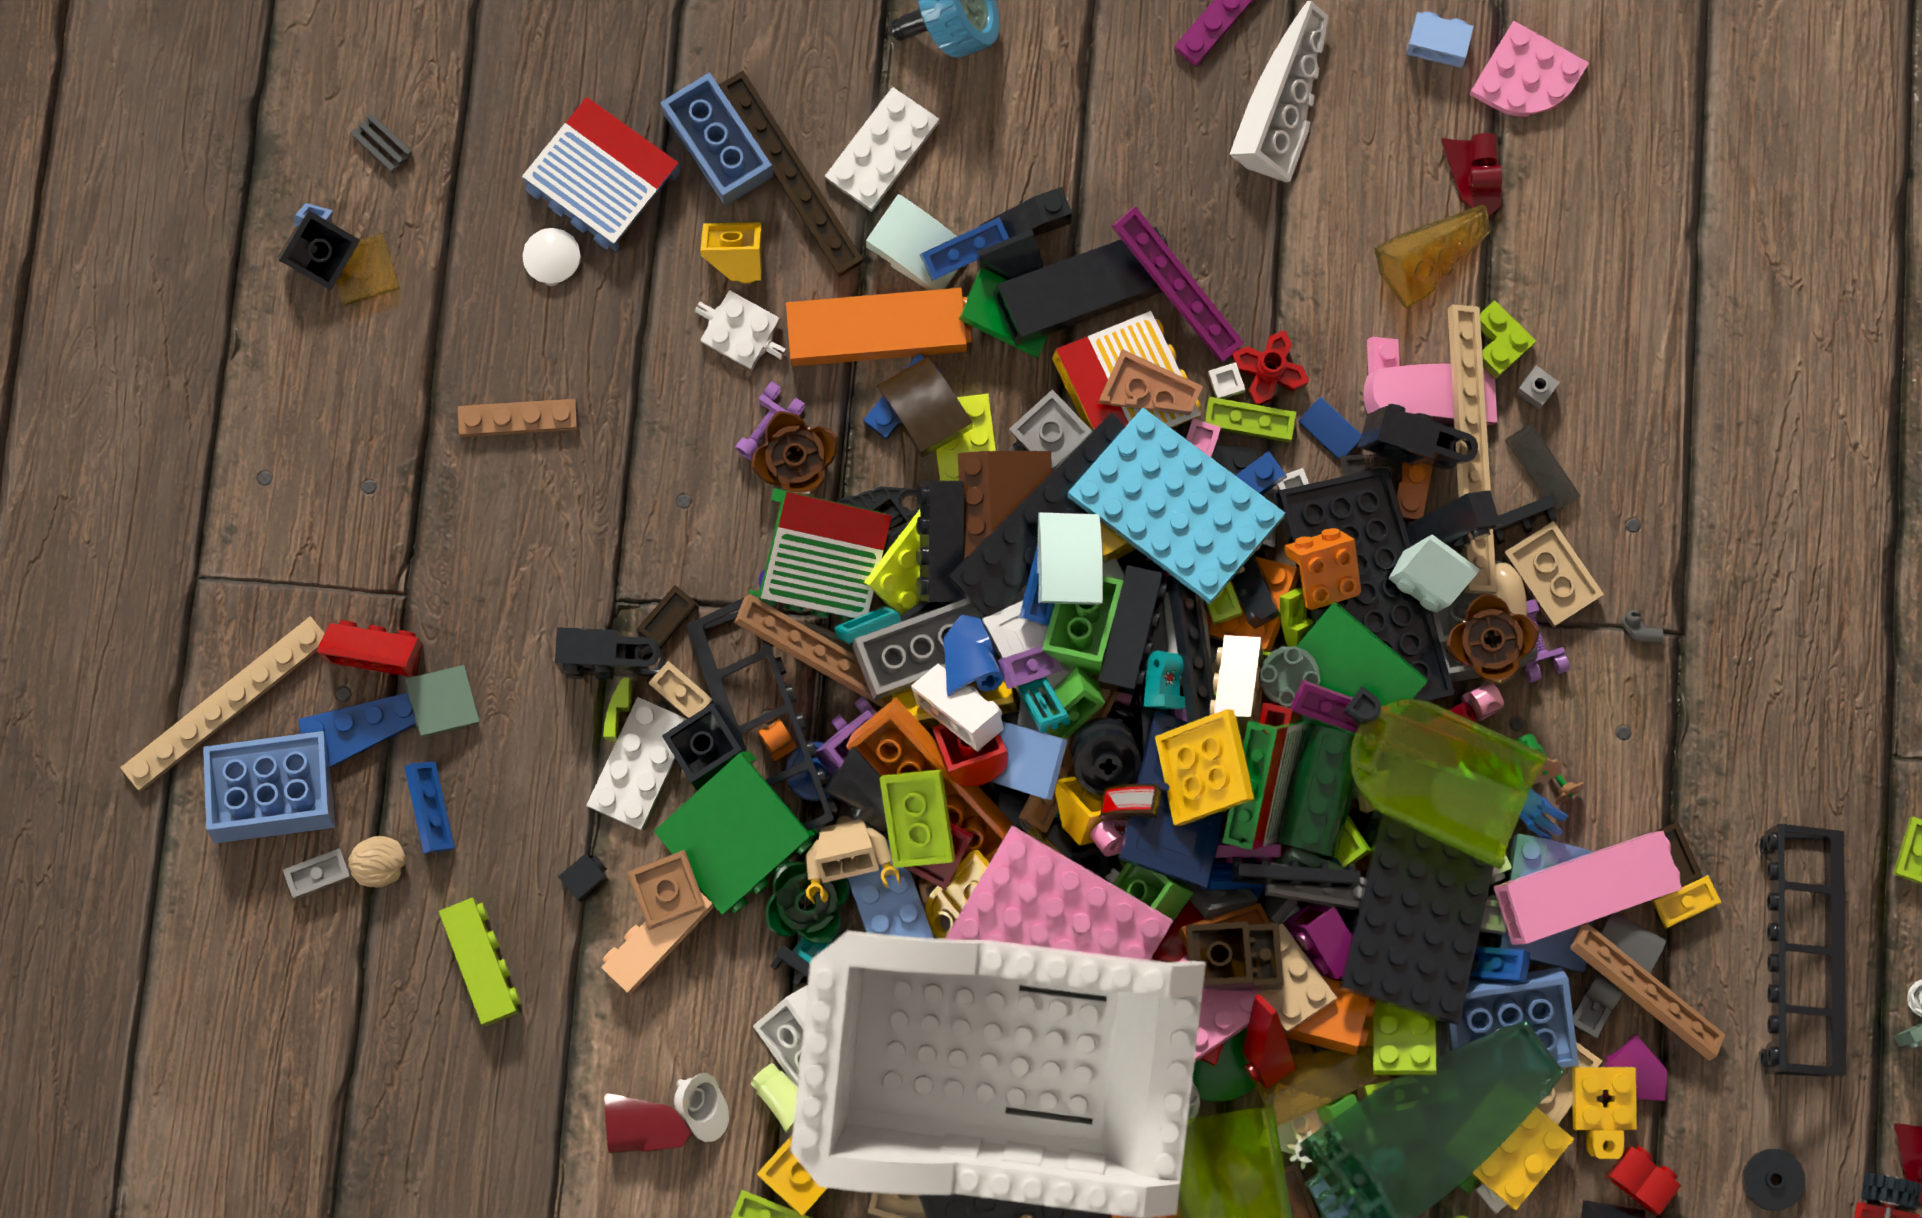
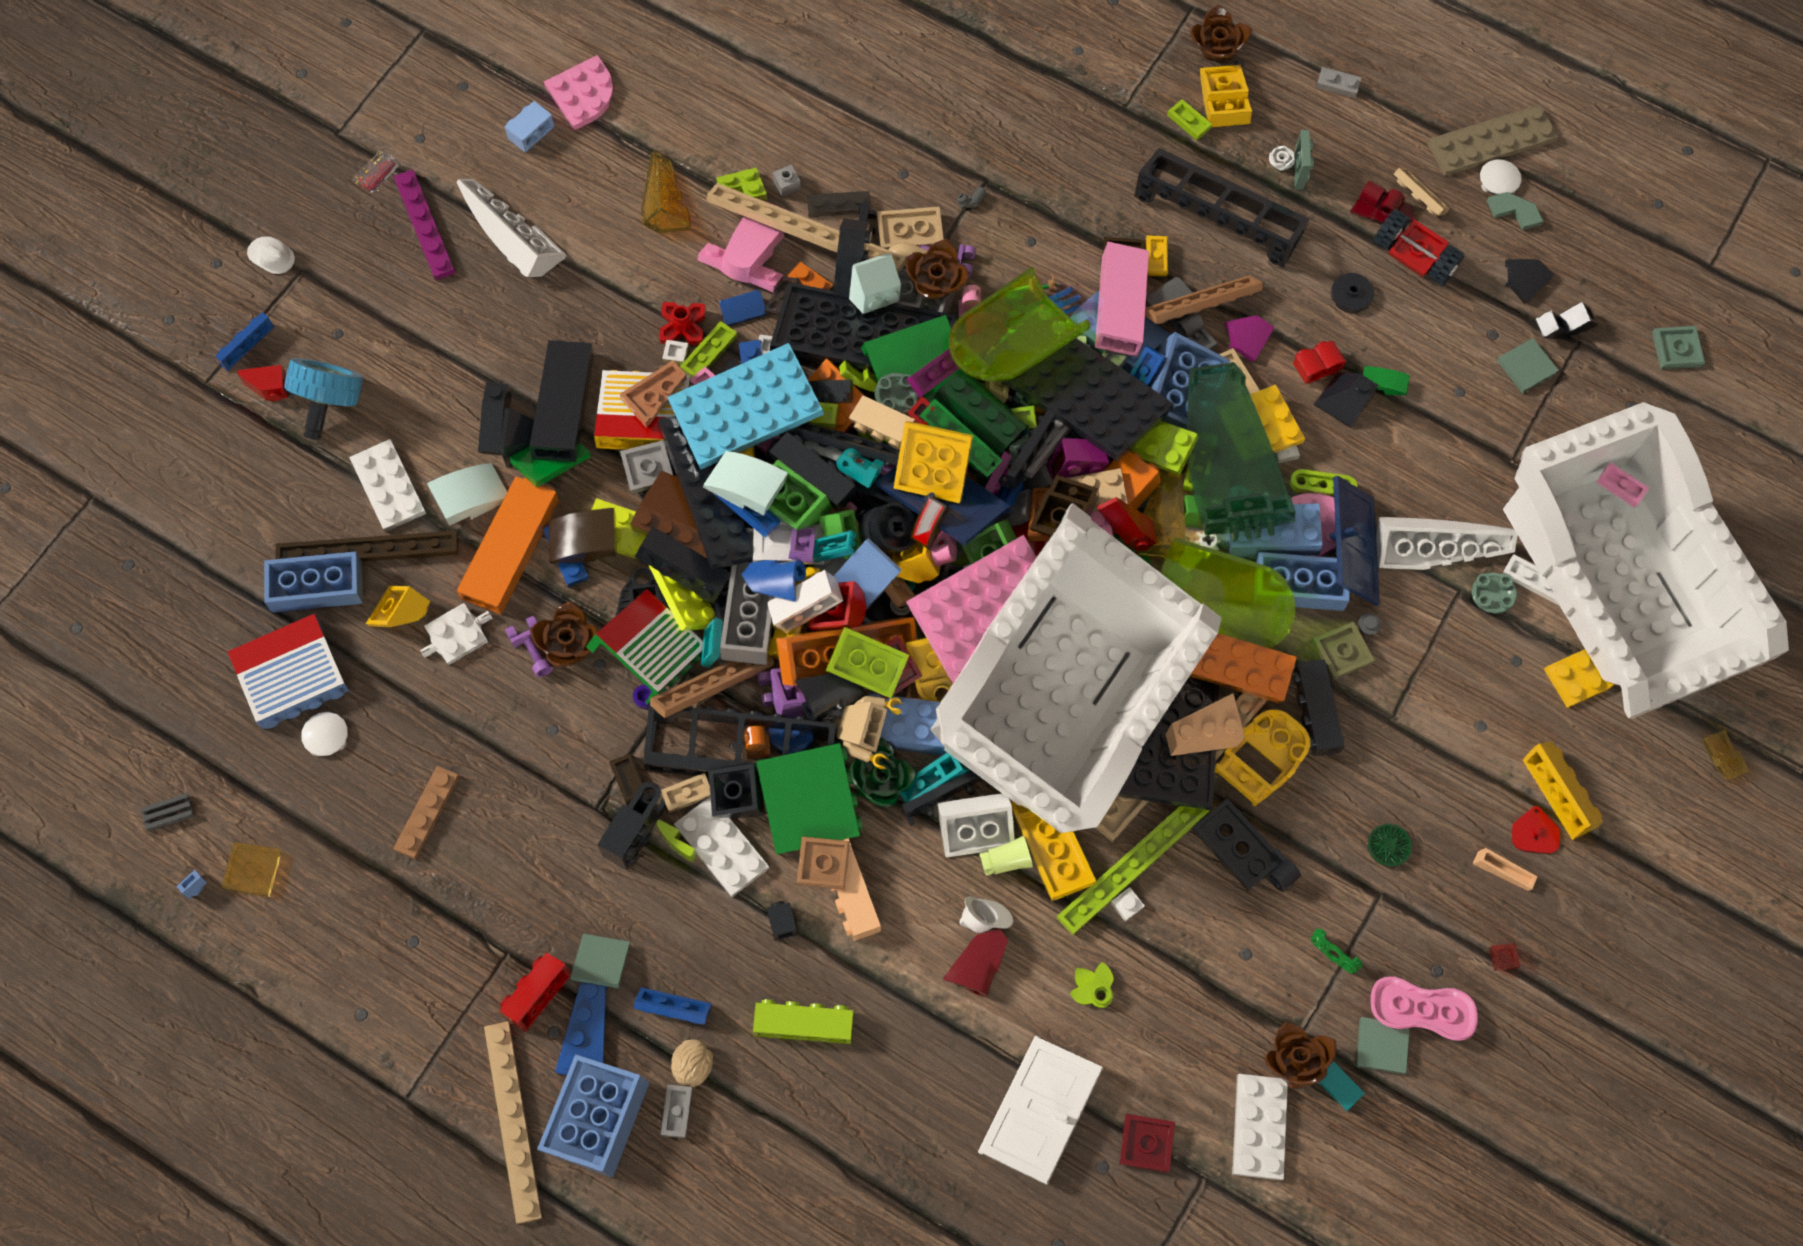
camera: 65 degrees left, 10 degrees down
(318, 249) = (217, 889): black slope -> none
(962, 249) = (490, 462): blue plate -> none
(1177, 284) = (595, 343): magenta plate -> none
(1326, 567) = (838, 337): orange bracket -> none
(1363, 707) = (944, 351): black tile -> none
(1414, 438) = (780, 255): black brick -> none
(1476, 170) = (625, 147): dark red panel -> none
(1604, 1122) = (1271, 365): yellow plate -> none

